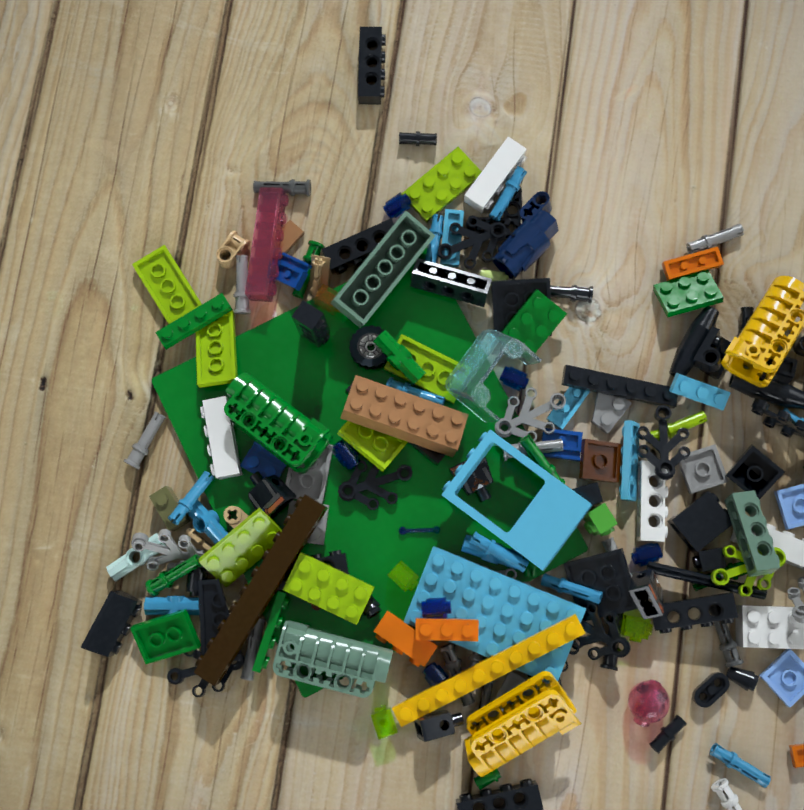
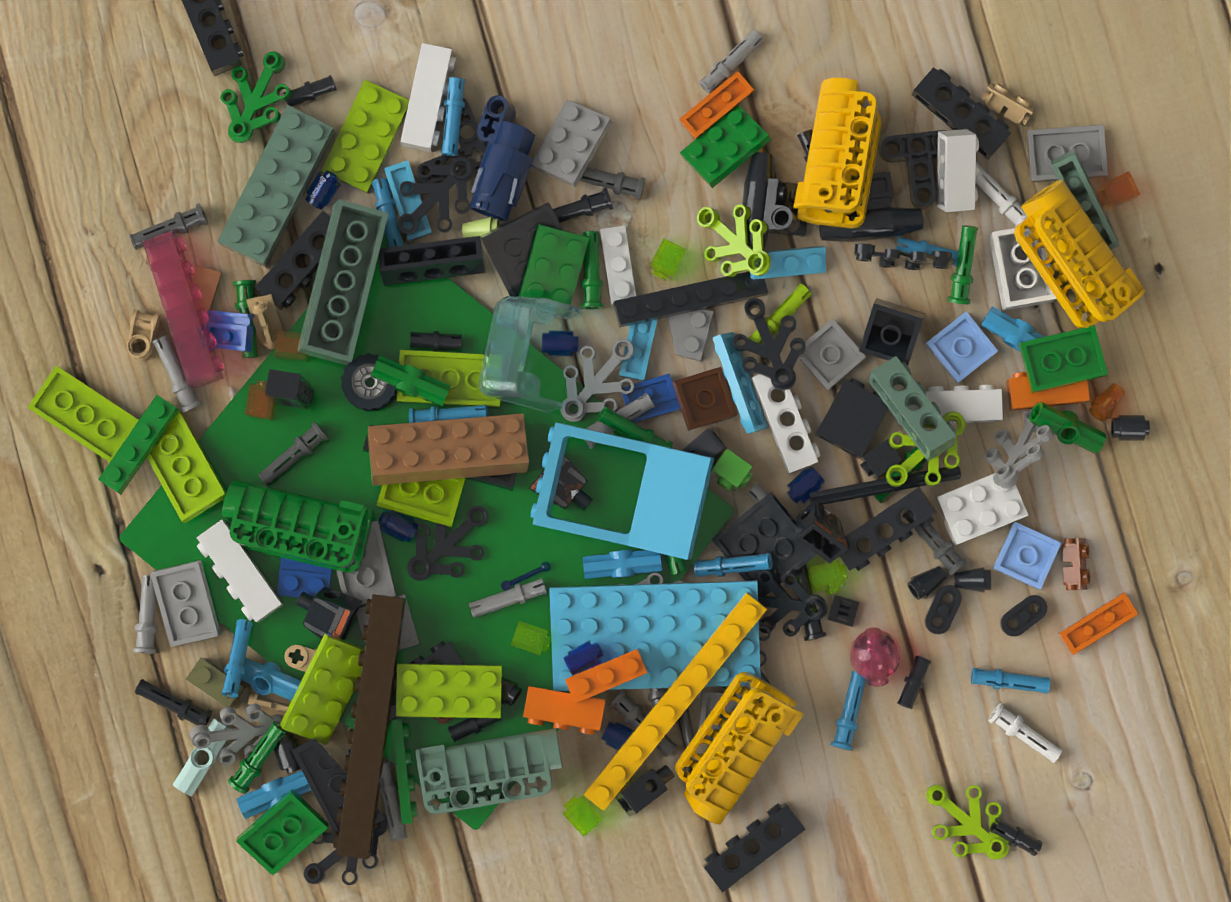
camera: 30 degrees left, 5 degrees up
(112, 623) = (213, 845): black slope -> none
(139, 516) = (184, 709): none -> black pin
(174, 443) = (185, 603): none -> light grey plate
(287, 329) = (258, 404): none -> clear orange brick
(306, 373) = (268, 475): none -> dark grey pin
(332, 620) = (470, 726): none -> black pin
(367, 190) = (276, 186): none -> sand green brick
(379, 129) = (255, 100): none -> green plant
(400, 540) = (508, 598): none -> light grey pin
(429, 339) = (435, 341): none -> black pin
(482, 782) = (731, 821): green pin -> none
(498, 551) = (628, 560): dark azure pin -> none
(555, 347) = (592, 283): none -> green pin
(578, 340) = (617, 263): none -> white plate
(581, 246) = (571, 143): none -> light grey plate
(602, 287) = (618, 183): none -> dark grey pin
(606, 742) = (847, 723): none -> dark azure pin
(614, 353) = (667, 260): none -> clear neon green brick
(637, 657) = (843, 610): none -> black tile
(671, 362) = (738, 241): none -> lime plant
(705, 664) = (925, 583): none -> black cone
(768, 721) = (1023, 616): none -> black plate

